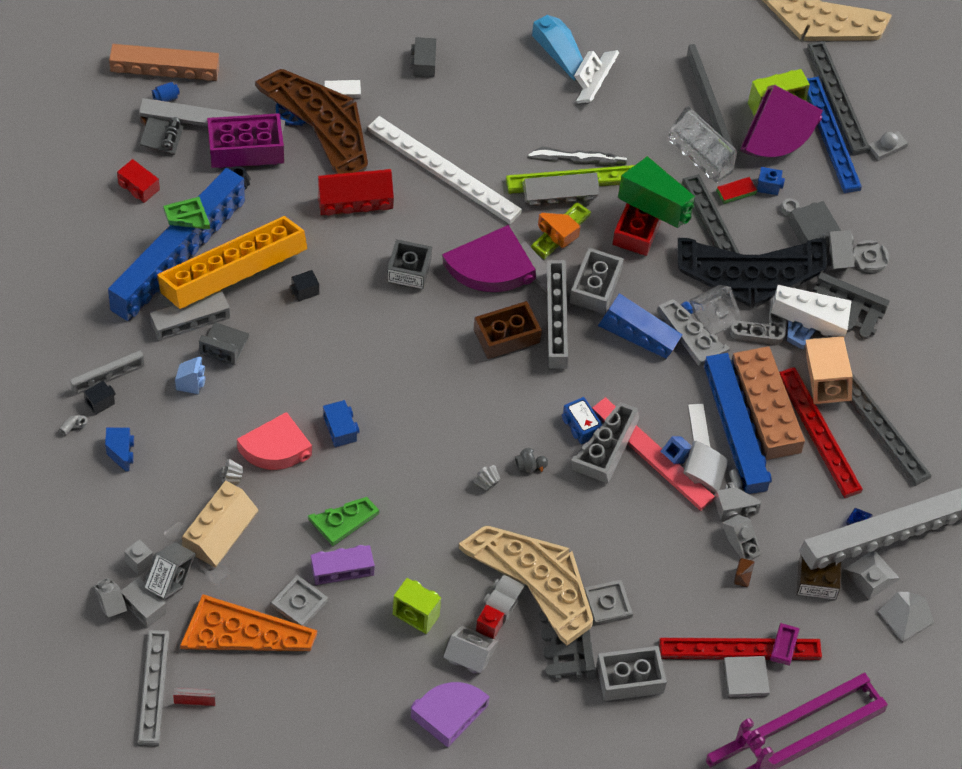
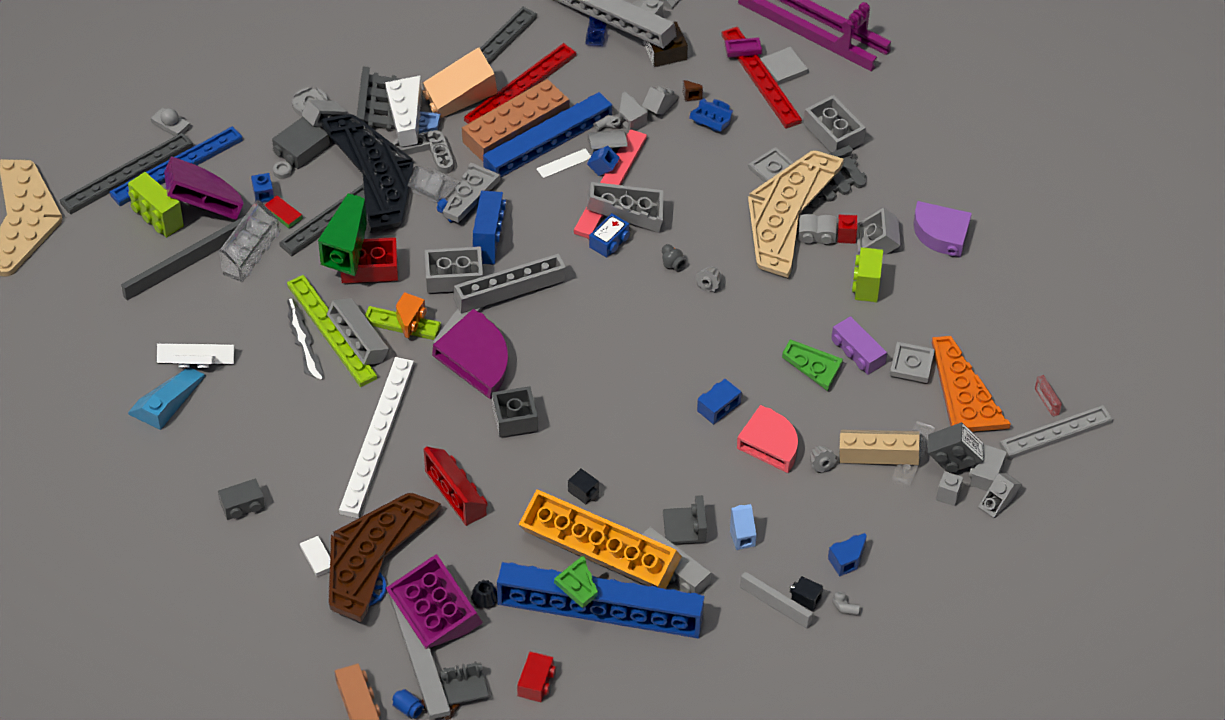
camera: 110 degrees left, 5 degrees down
(507, 330) = (547, 314): reddish brown brick -> none
(701, 576) = (712, 114): none -> blue slope

